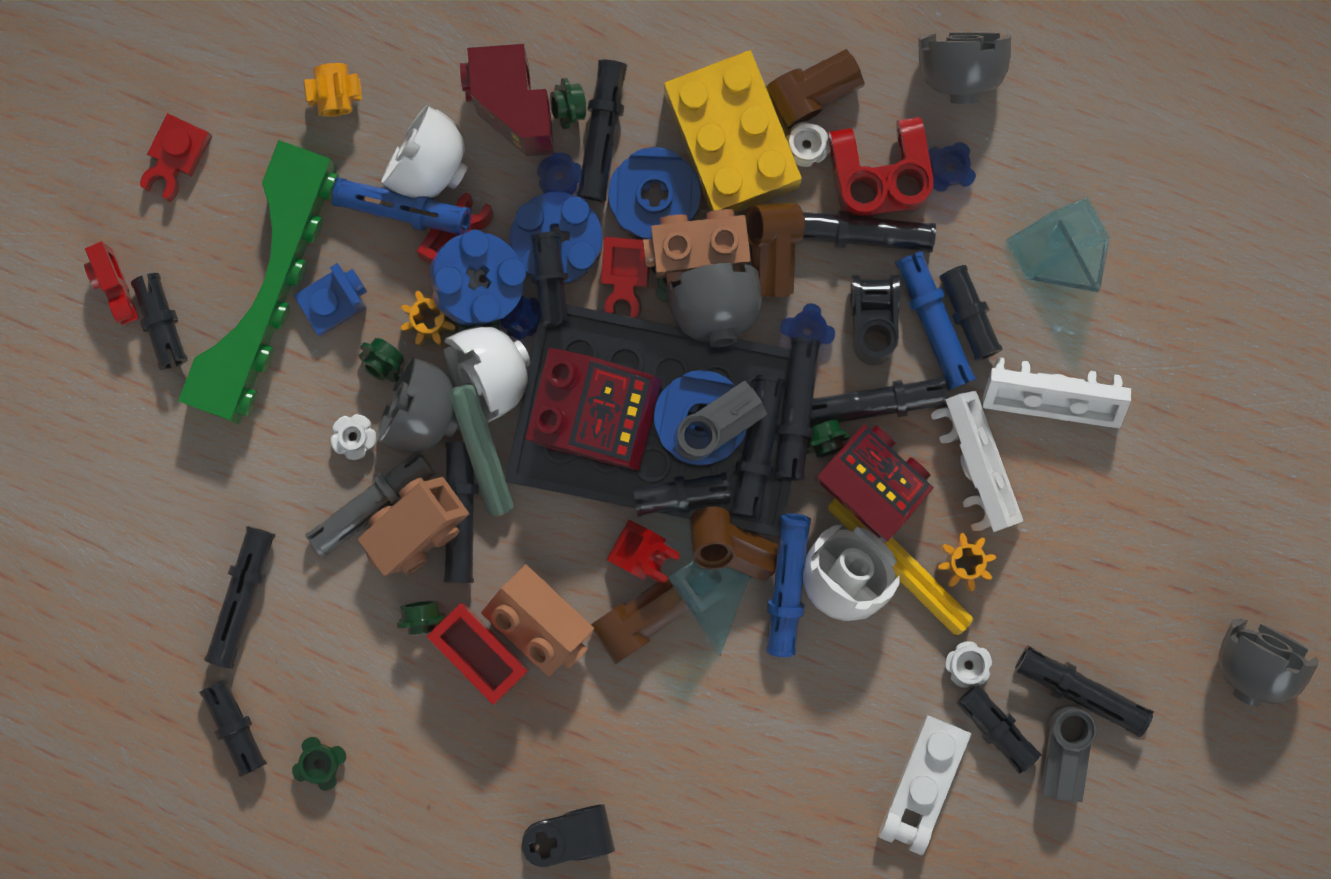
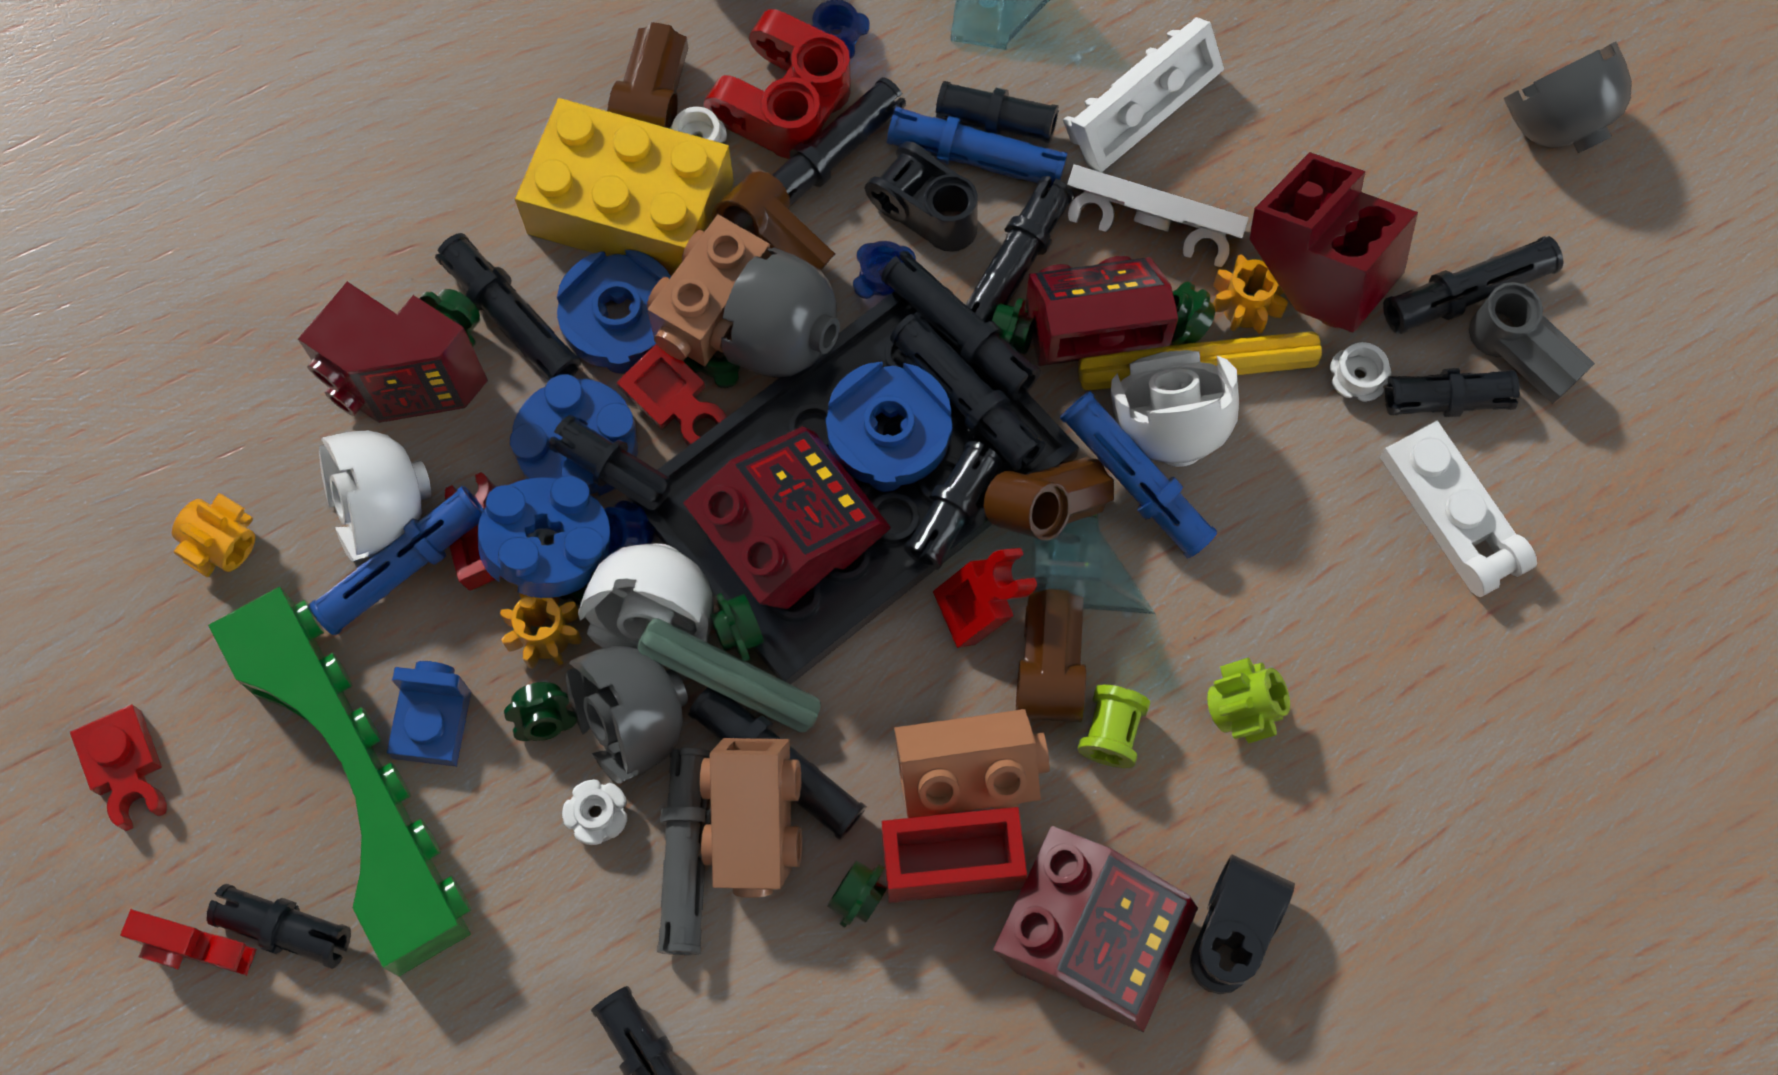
camera: 50 degrees left, 15 degrees down
(500, 762) = (1096, 928): none -> dark red piece
(510, 430) = (736, 625): none -> dark green plate
(559, 163) = (507, 371): clear blue plate -> none
(627, 684) = (1114, 726): none -> lime bush
(701, 749) = (1248, 700): none -> lime gear
(721, 420) = (911, 396): dark grey piece -> none
(921, 534) = (1194, 313): none -> dark green plate
(1031, 588) = (1331, 241): none -> dark red piece

